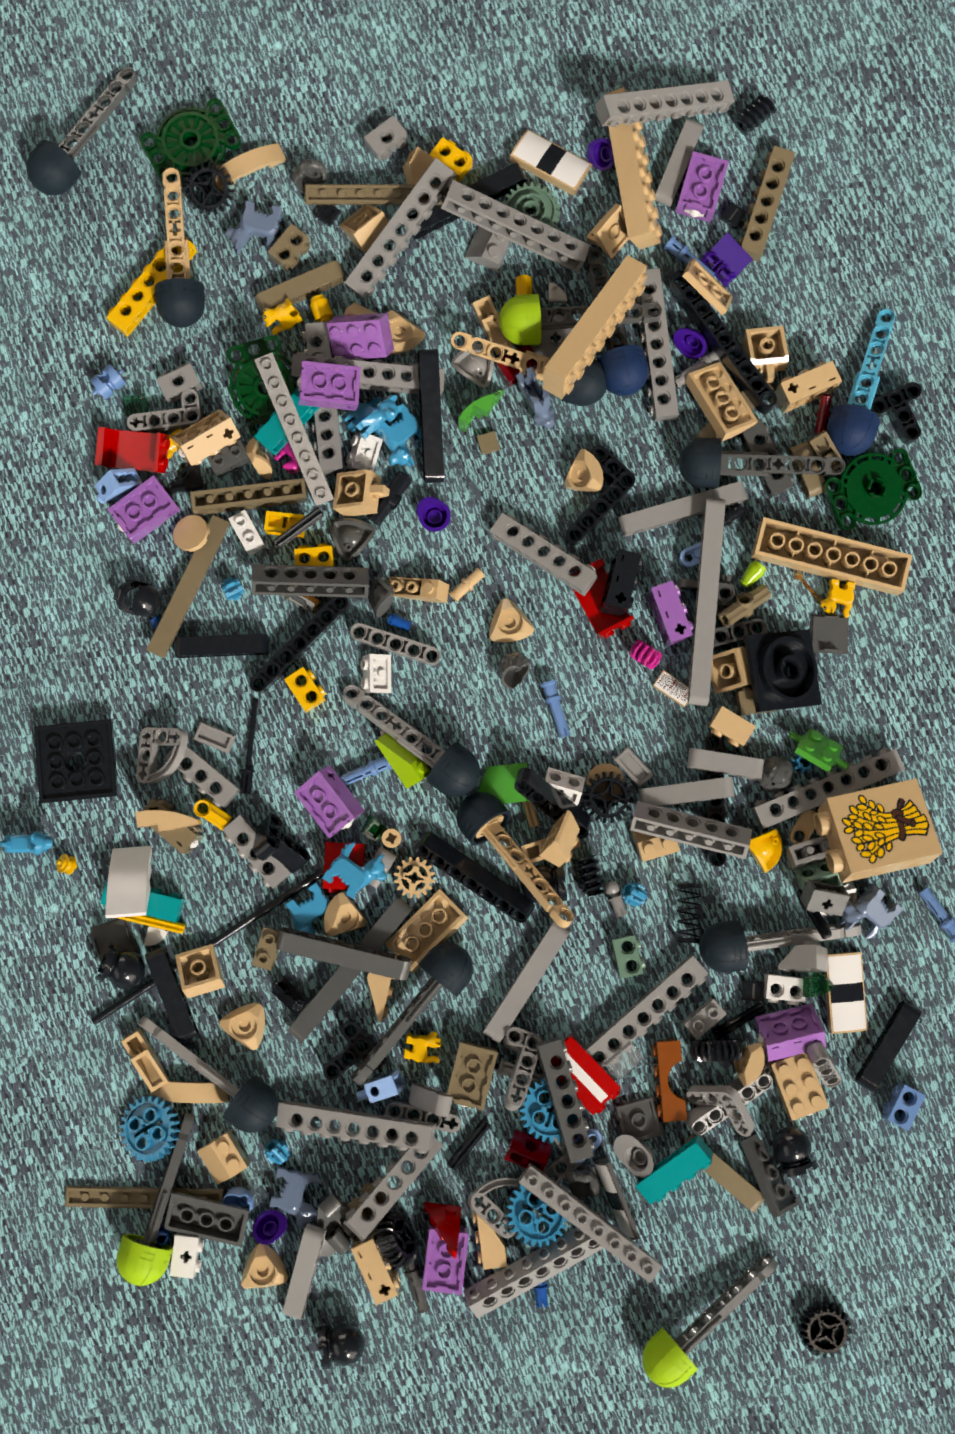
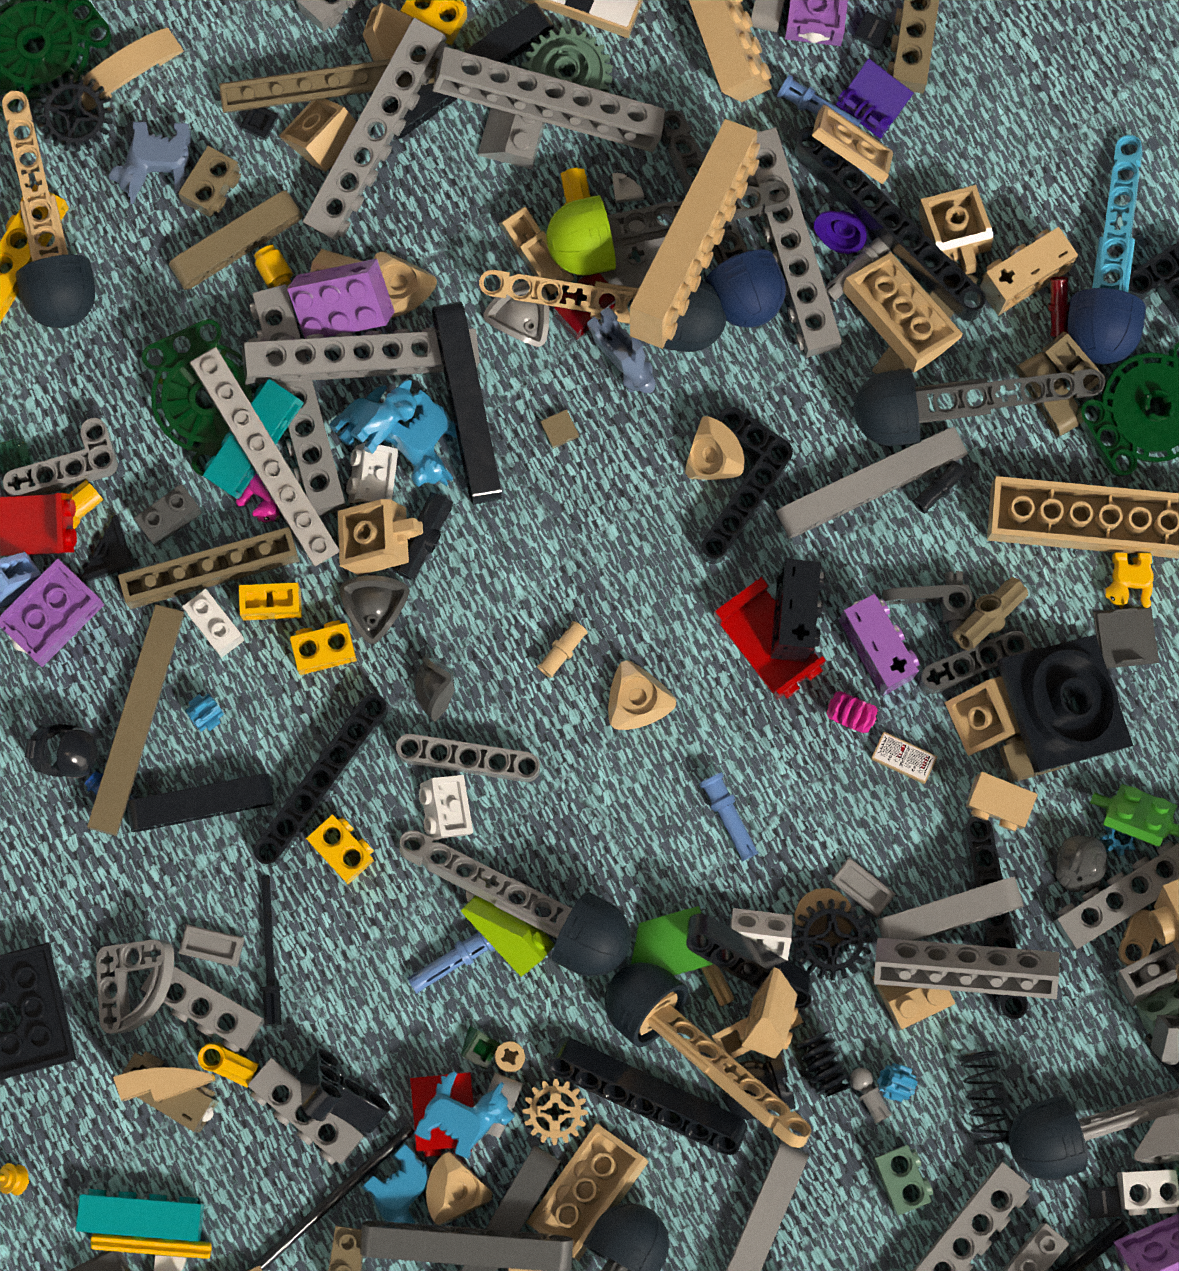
camera: 10 degrees left, 5 degrees down
(129, 882) = (116, 1189): white slope -> none
(167, 382) = (68, 427): light grey brick -> none
(191, 533) = (127, 637): tan tile -> none
(206, 437) = (129, 488): tan piece -> none
(259, 459) = (214, 508): tan hat -> none
(285, 314) = (220, 283): yellow animal -> none
(298, 527) = (293, 603): black axle -> none
(308, 603) = (311, 709): slope -> none
(309, 172) = (222, 66): dark grey hair -> none
(310, 581) = (323, 681): dark grey brick -> none
(329, 385) = (307, 382): medium lavender piece -> none
(329, 801) = (406, 1015): medium lavender piece -> none
(399, 622) = (468, 722): blue pin -> none
(420, 589) = (493, 667): tan slope -> none
(433, 514) = (494, 550): dark purple piece -> none
(479, 408) = (539, 378): bright green slope -> none
(507, 524) = (735, 620): light grey brick -> none
(513, 669) = (654, 767): dark grey hair -> none
(610, 232) = (692, 84): tan bracket -> none
(694, 552) = (904, 546): light blue plate -> none
(706, 602) = (931, 618): light grey beam -> none
(725, 763) = (1030, 859): light grey beam -> none
(753, 572) = (994, 563): lime cone -> none
(766, 849) = (1087, 980): yellow hat -> none
(771, 485) = (1002, 427): dark grey brick -> none
(799, 576) = (1065, 556): clear orange hinge -> none

